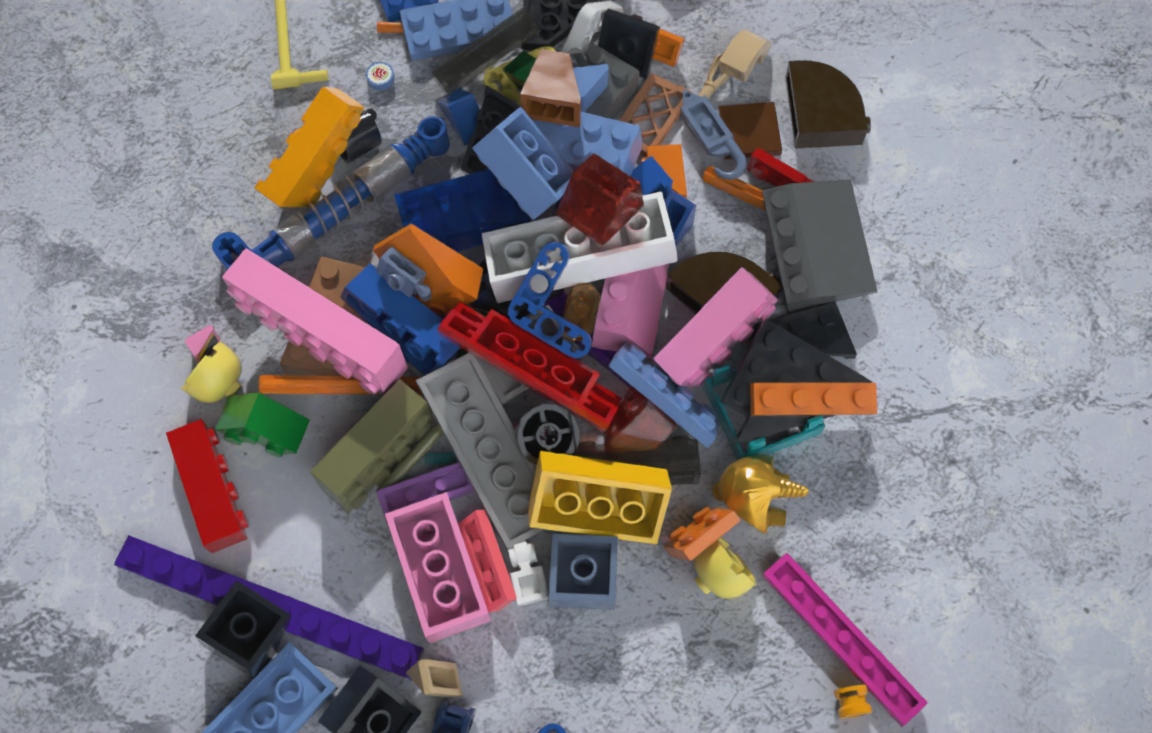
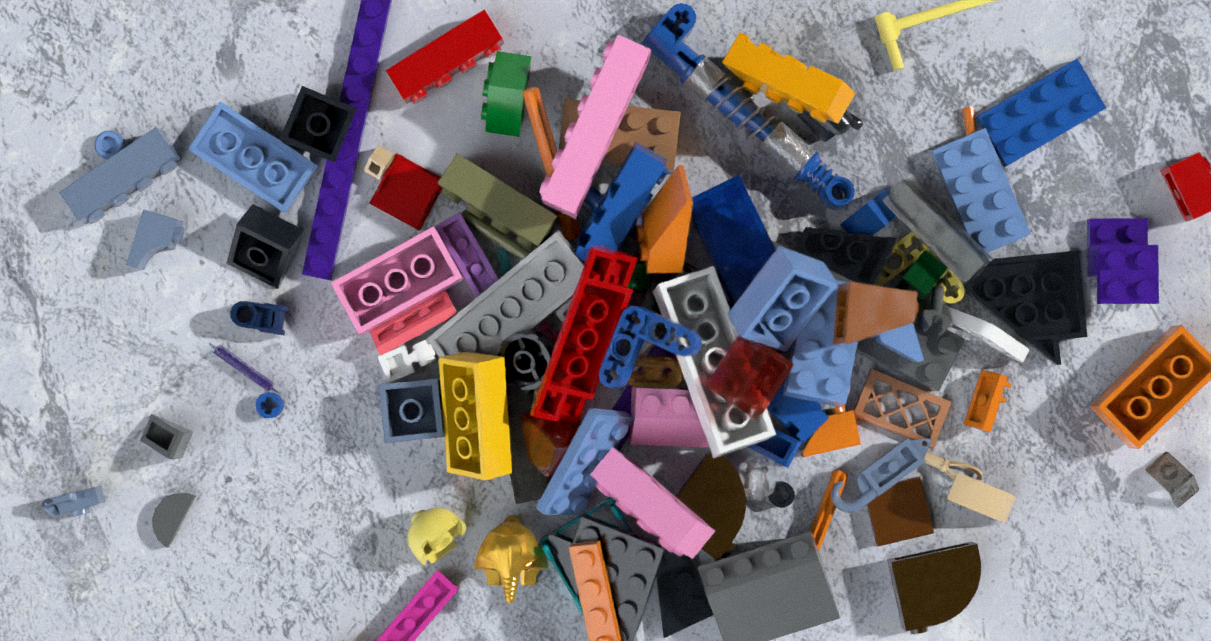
camera: 80 degrees right, 20 degrees up
(203, 342) = (580, 17): bright pink slope -> none
(215, 376) = (549, 39): light yellow cylinder -> none
(303, 573) = (379, 162): none -> tan piece
(343, 551) = (407, 192): none -> red piece
(380, 76) = (906, 123): tile -> none
(403, 274) = (652, 201): sand blue piece -> none
(436, 678) = (300, 298): tan slope -> none
(629, 39) = (974, 374): black hinge -> none
(701, 240) = (757, 477): none -> clear head
(706, 528) = (461, 510): orange plate -> none
(727, 233) = (789, 489): none -> black bush
(774, 171) = (841, 554): red hinge -> none

